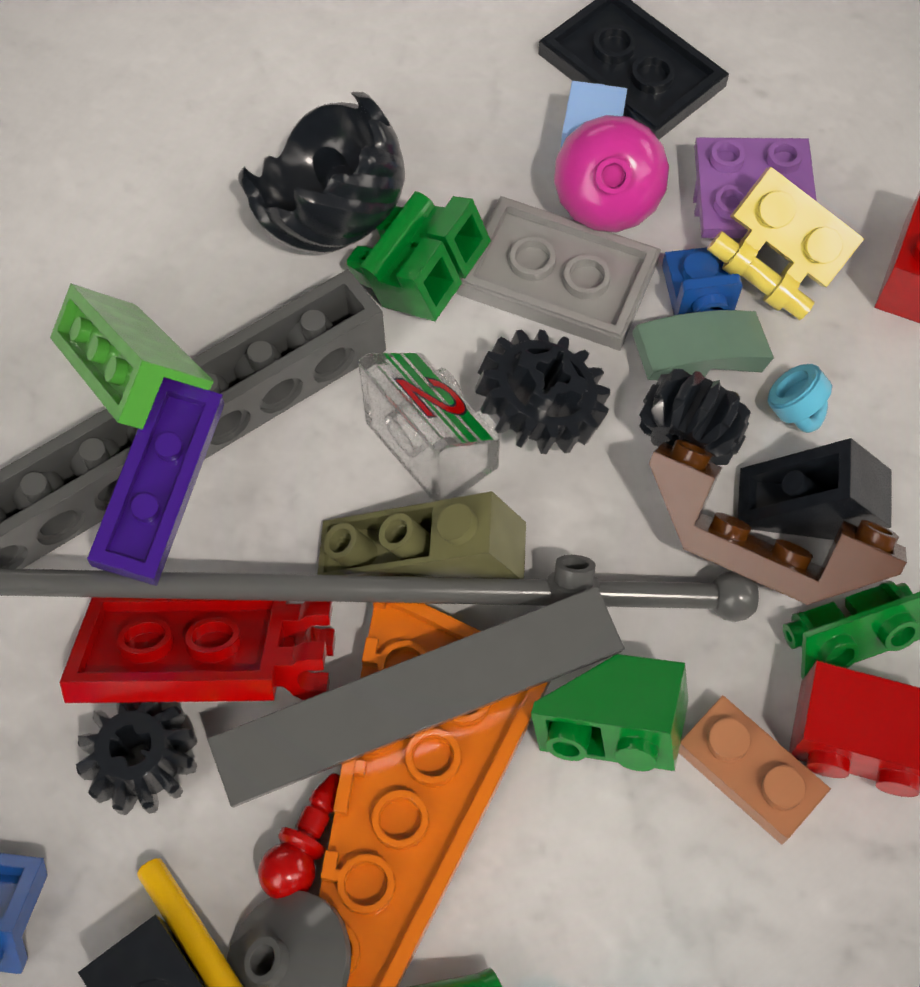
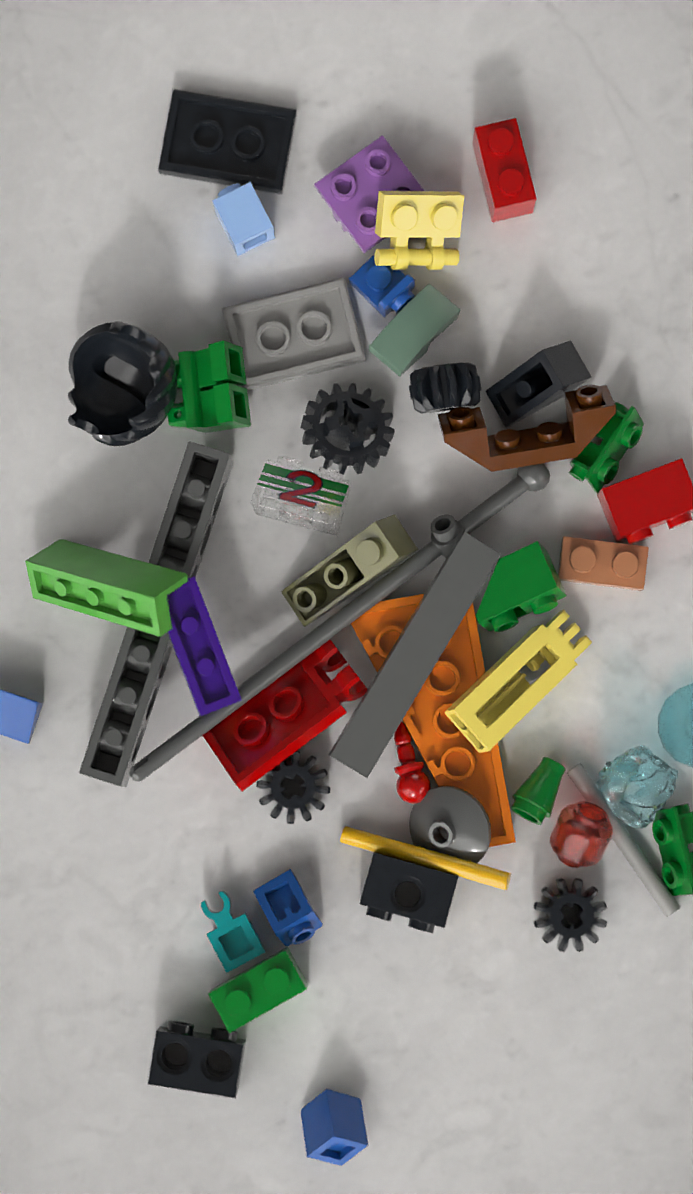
camera: 30 degrees left, 20 degrees up
(498, 832) = (503, 693): none -> light yellow hinge
(611, 173) = (284, 253): dark pink cylinder -> none
(801, 397) = (490, 323): medium azure tile -> none

